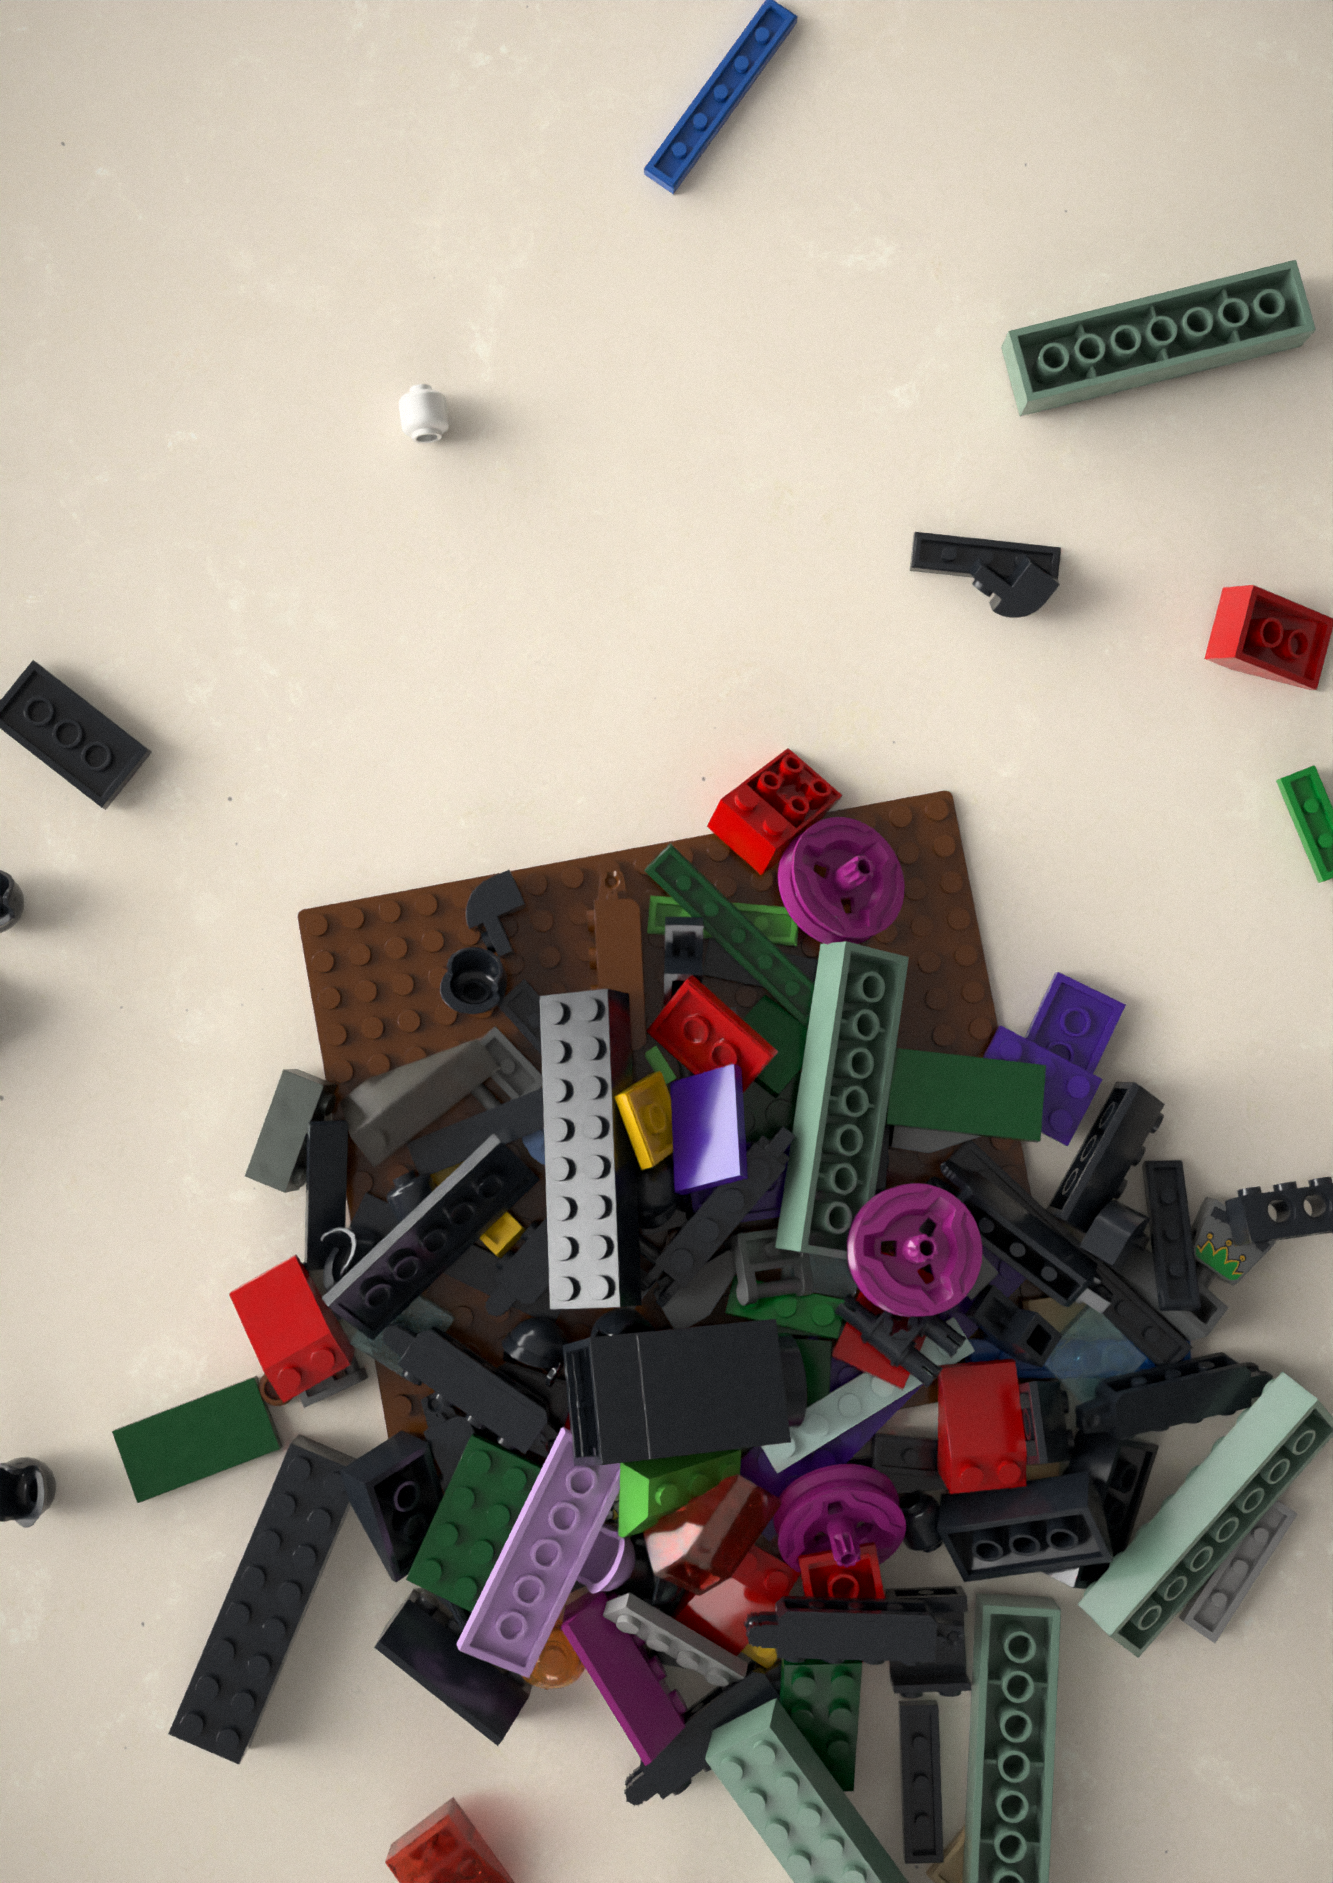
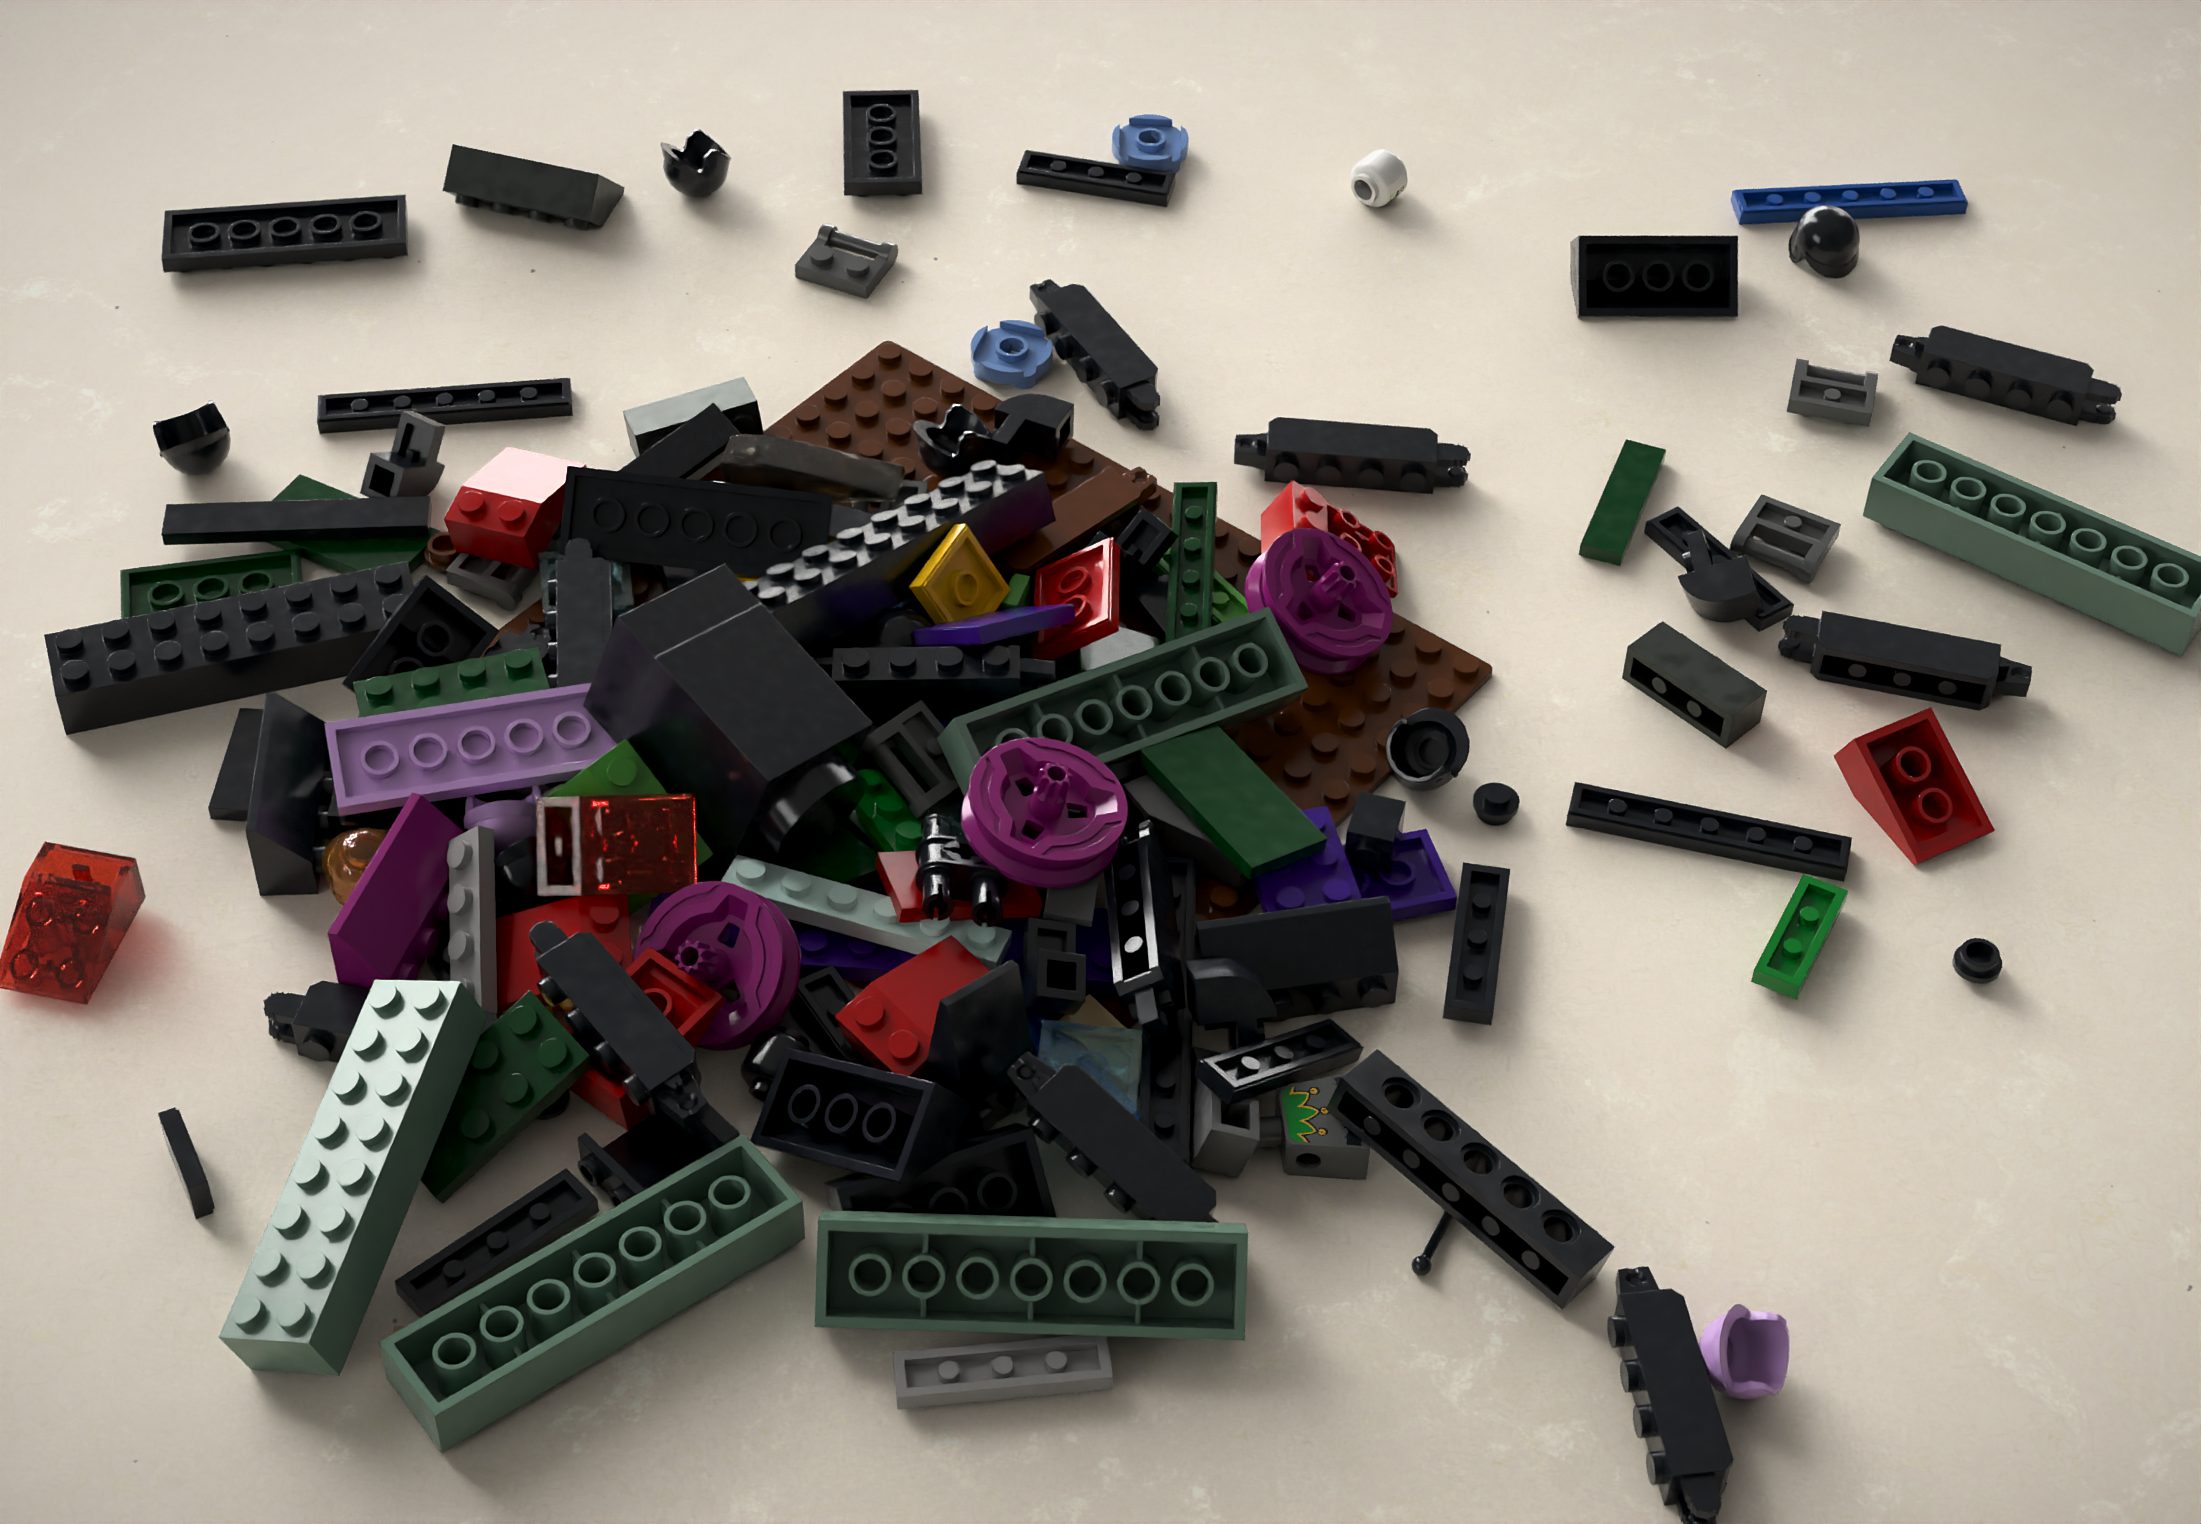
camera: 45 degrees right, 40 degrees down
(111, 1274) = (446, 404): none -> black tile
(168, 1473) = (297, 520): none -> black tile
(173, 1361) = (411, 464): none -> black brick
(187, 1569) = (193, 582): none -> dark green tile
(191, 881) = (843, 270): none -> dark grey plate
(238, 518) = (1166, 153): none -> medium blue plate
(239, 609) = (1096, 178): none -> black tile
(358, 1633) = (235, 779): none -> black tile
(368, 837) = (995, 364): none -> medium blue plate
(438, 781) = (1098, 351): none -> black hinge
(690, 321) = (1654, 276): none -> black slope
(690, 706) = (1353, 455): none -> black hinge
(756, 165) = (1827, 241): none -> black helmet
(877, 560) = (1622, 502): none -> dark green tile
(906, 324) = (1832, 393): none -> dark grey plate
(984, 186) = (2007, 375): none -> black hinge
(998, 480) = (1789, 528): none -> dark grey plate
(1004, 918) = (1427, 749): none -> black helmet
(1051, 1020) = (1374, 832): none -> black brick
(1063, 901) = (1495, 803): none -> black plate
(1078, 683) = (1694, 684): none -> pearl dark grey brick
(1163, 1021) = (1476, 944): none -> black plate
(1169, 531) = (1903, 660): none -> black hinge
(1189, 791) = (1709, 831): none -> black tile

